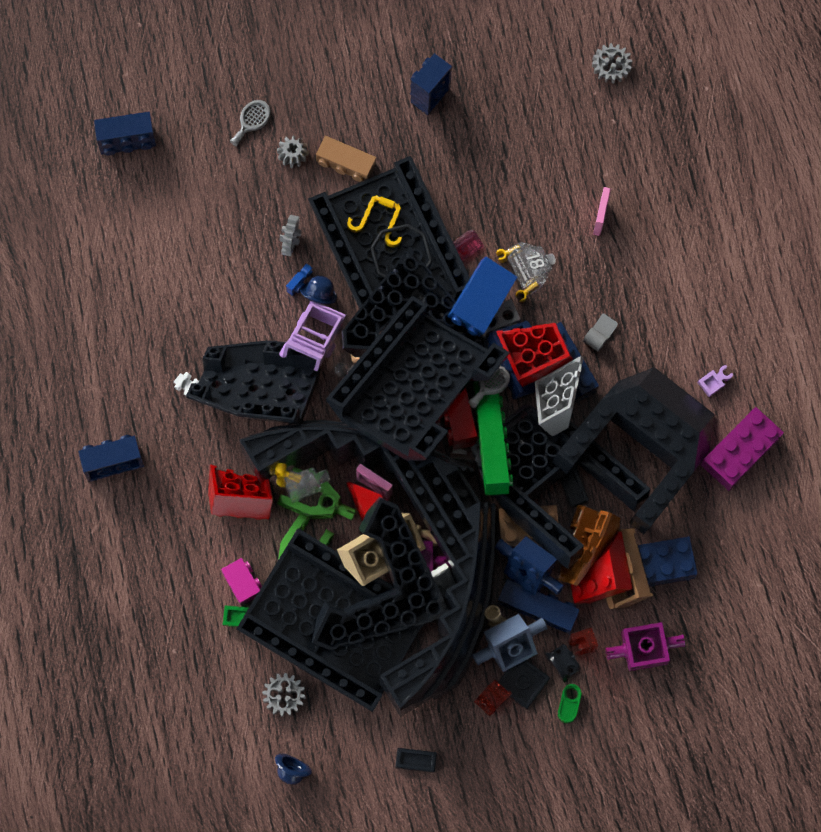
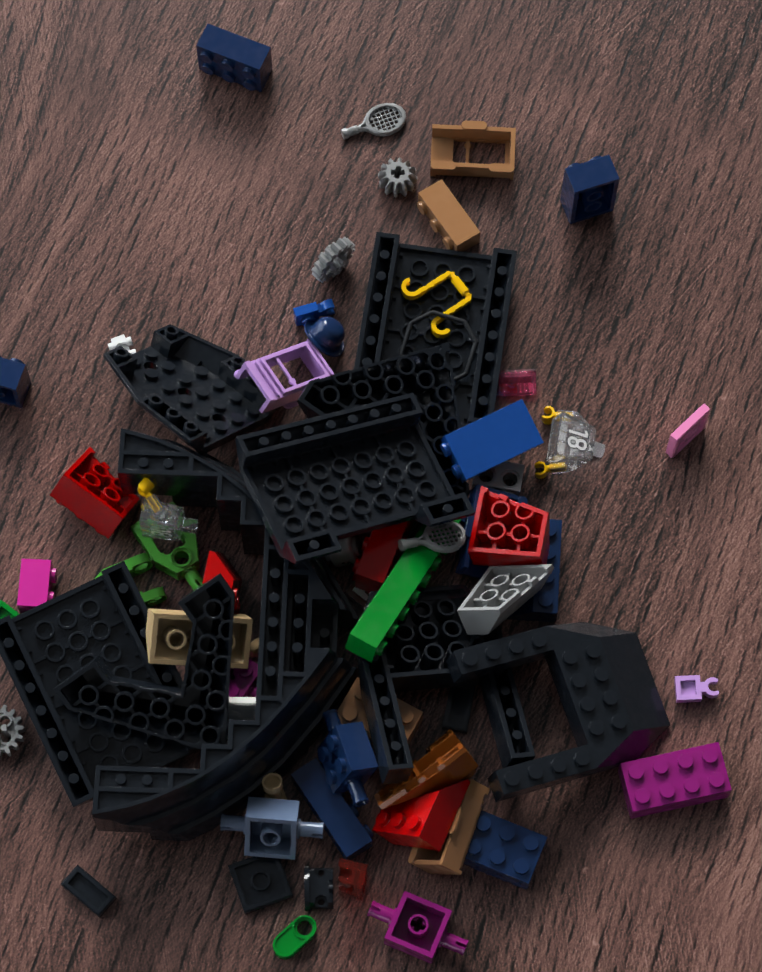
camera: 35 degrees right, 5 degrees down
(308, 113) = (471, 131): none -> medium nougat piece
(374, 481) = (244, 567): bright pink tile -> none
(492, 697) = (213, 876): clear red piece -> none
(600, 332) = (599, 562): light grey panel -> none

